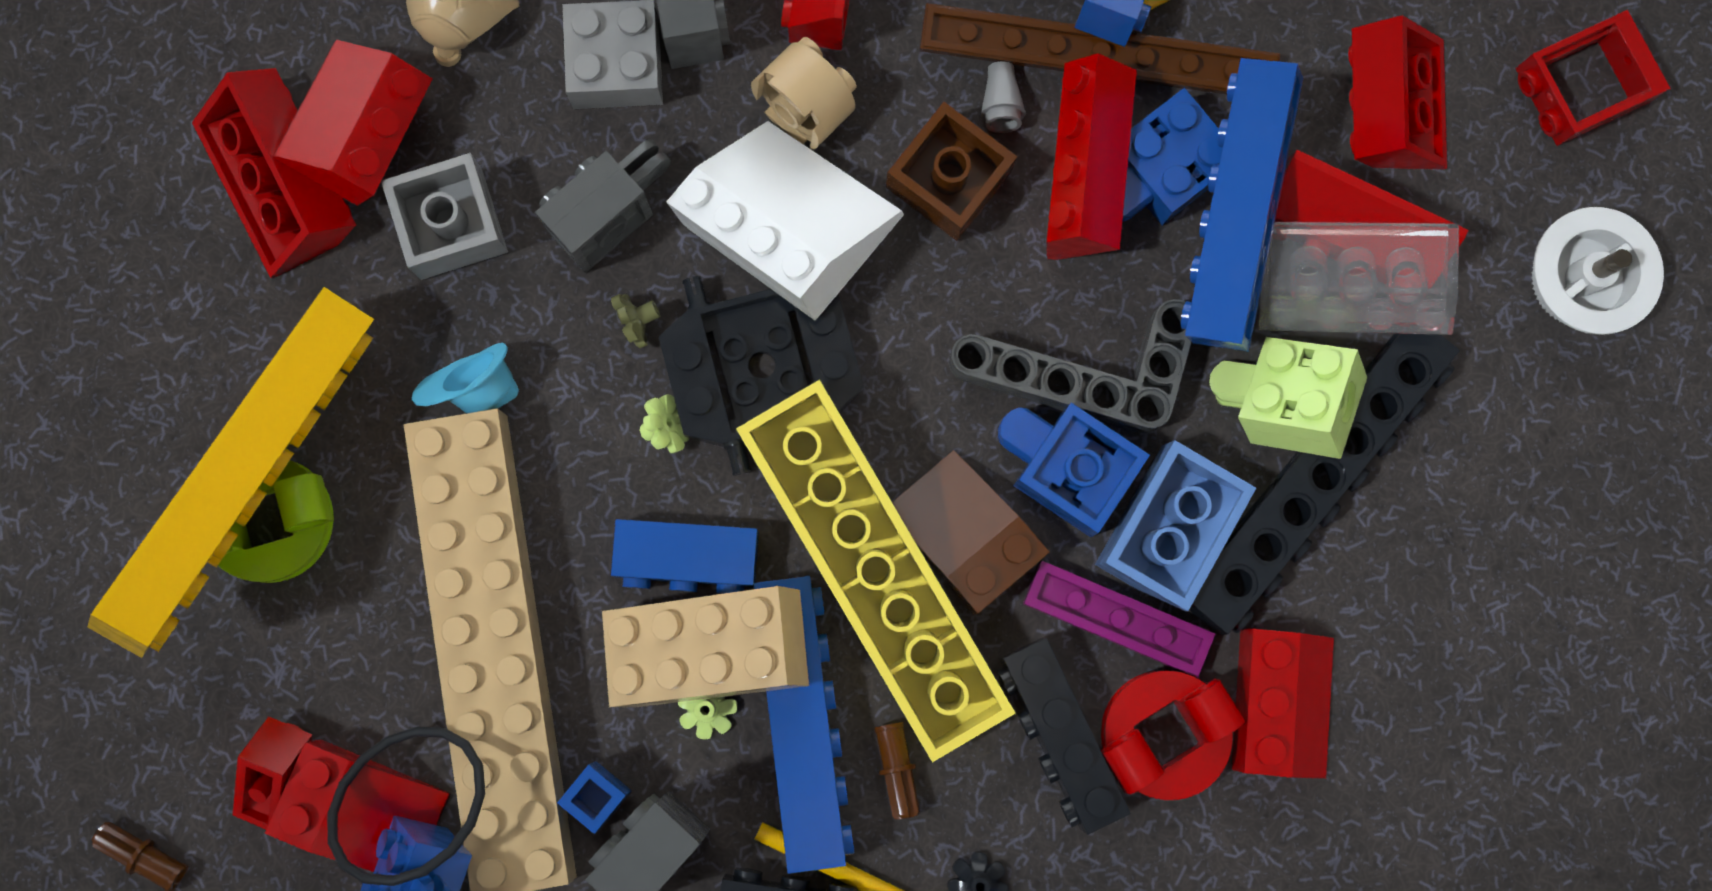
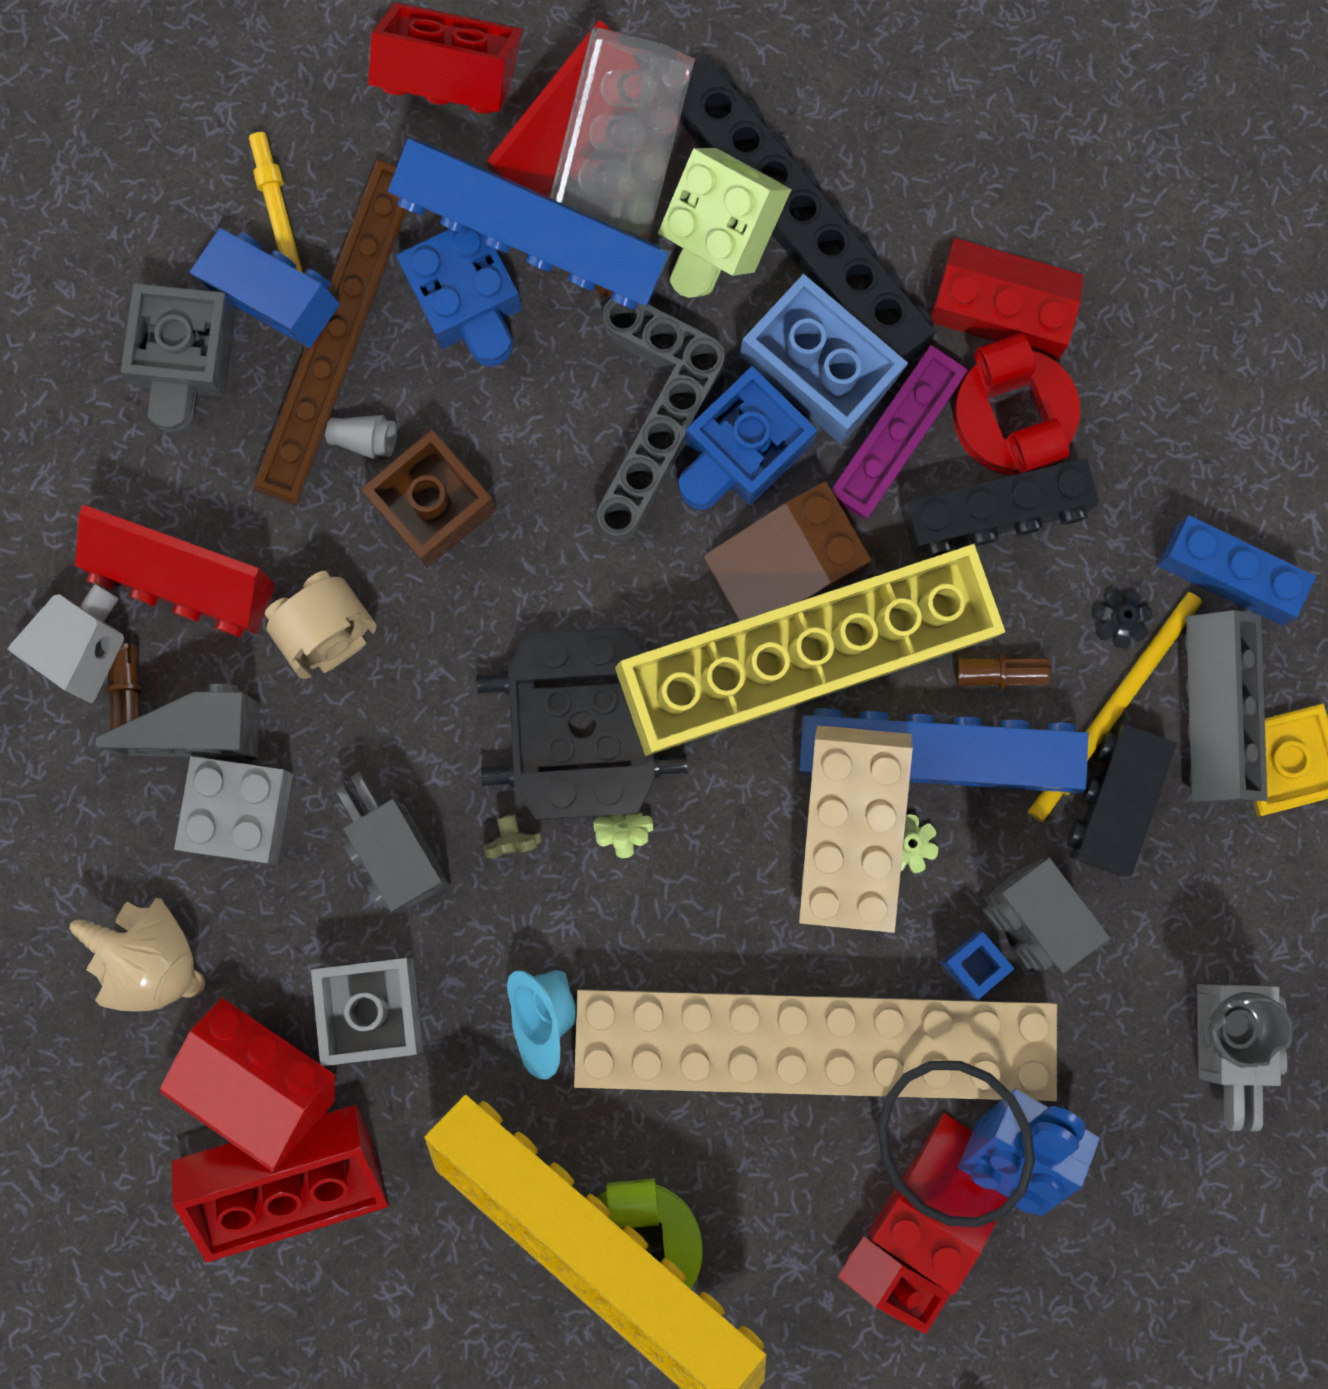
camera: 70 degrees left, 0 degrees up
(684, 555) = (758, 834): blue brick -> none
(785, 216) = (440, 669): white slope -> none
(1091, 157) = (447, 360): red slope -> none

